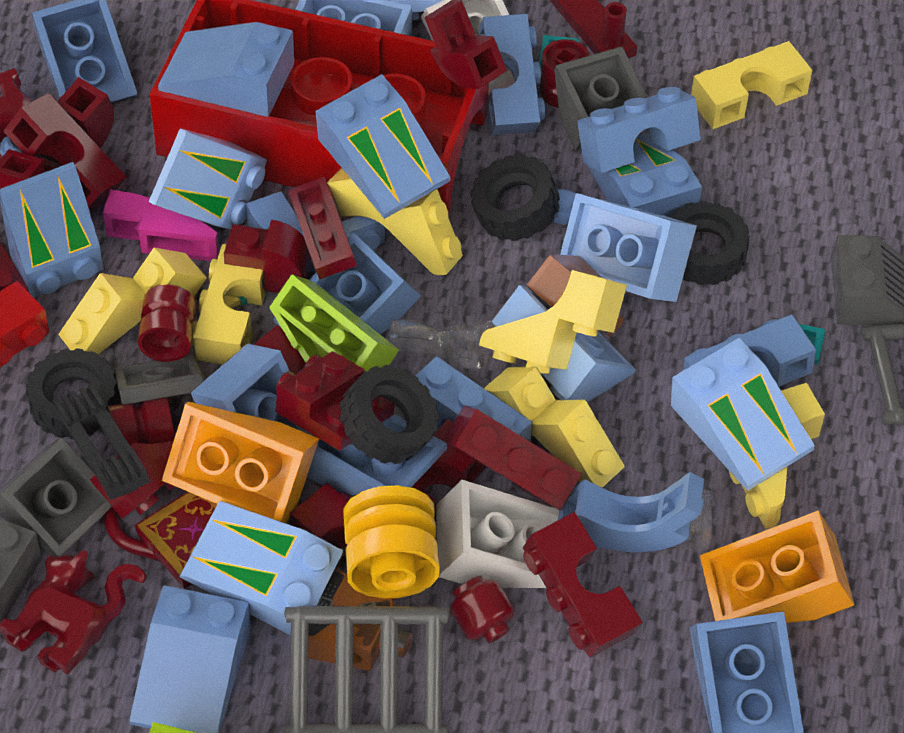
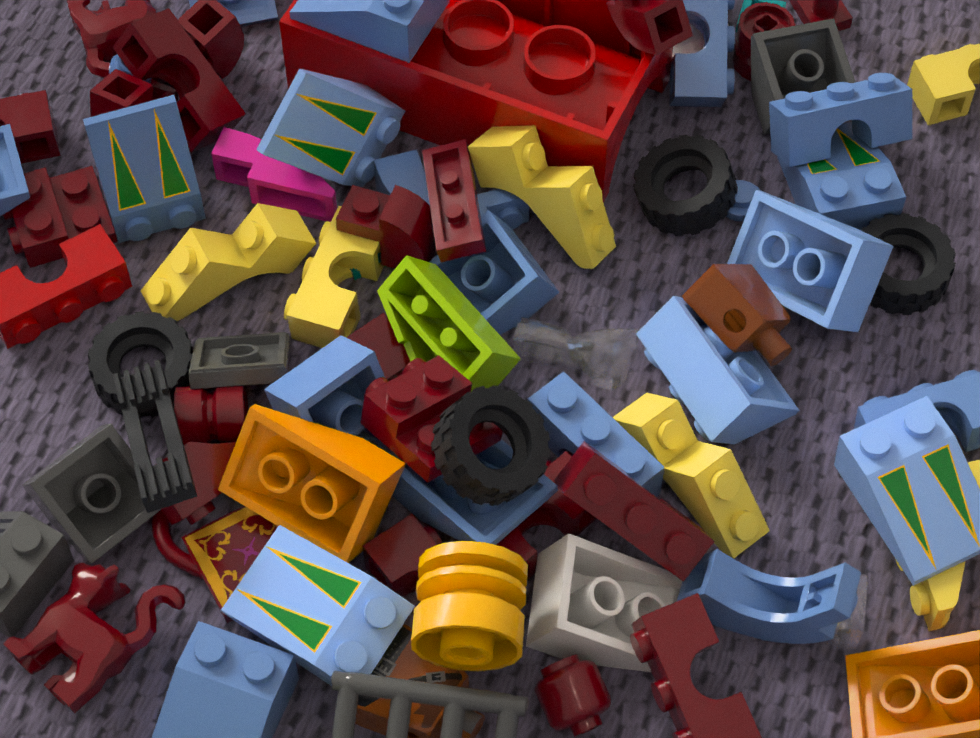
camera: 10 degrees right, 5 degrees up
(166, 323) = (258, 294): dark red wheel -> none
(380, 146) = (532, 112): medium blue slope -> none
(549, 337) = (696, 368): light yellow arch -> none

